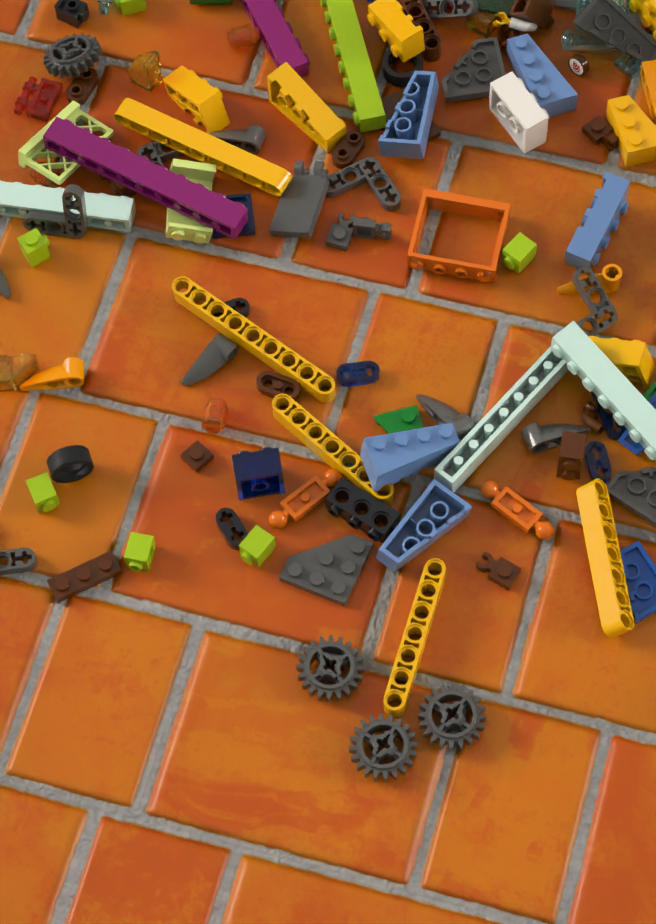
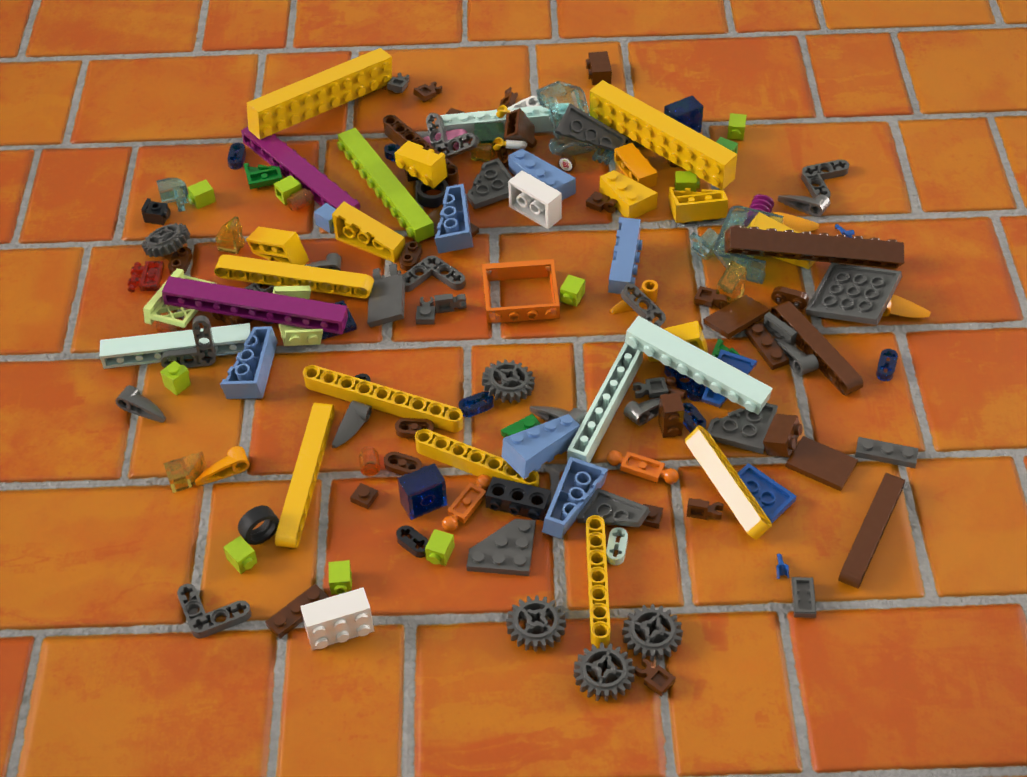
camera: 20 degrees left, 15 degrees down
(120, 603) = (337, 618): none -> white brick
(123, 254) = (253, 365): none -> medium blue wedge
(140, 412) = (305, 476): none -> yellow beam
(232, 16) = (286, 187): none -> lime brick
(251, 431) = (403, 462): none -> reddish brown plate
(262, 67) = (324, 218): none -> medium blue brick
(402, 348) = (508, 381): none -> dark grey gear
(437, 772) = (656, 679): none -> reddish brown plate
(457, 603) = (613, 545): none -> light aqua beam
(462, 556) = (614, 510): none -> dark grey wing
(563, 583) = (701, 509): none -> reddish brown plate
(569, 410) = (652, 387): none -> dark grey plate
(626, 682) = (781, 568): none -> blue hand
(635, 724) = (803, 597): none -> dark grey plate

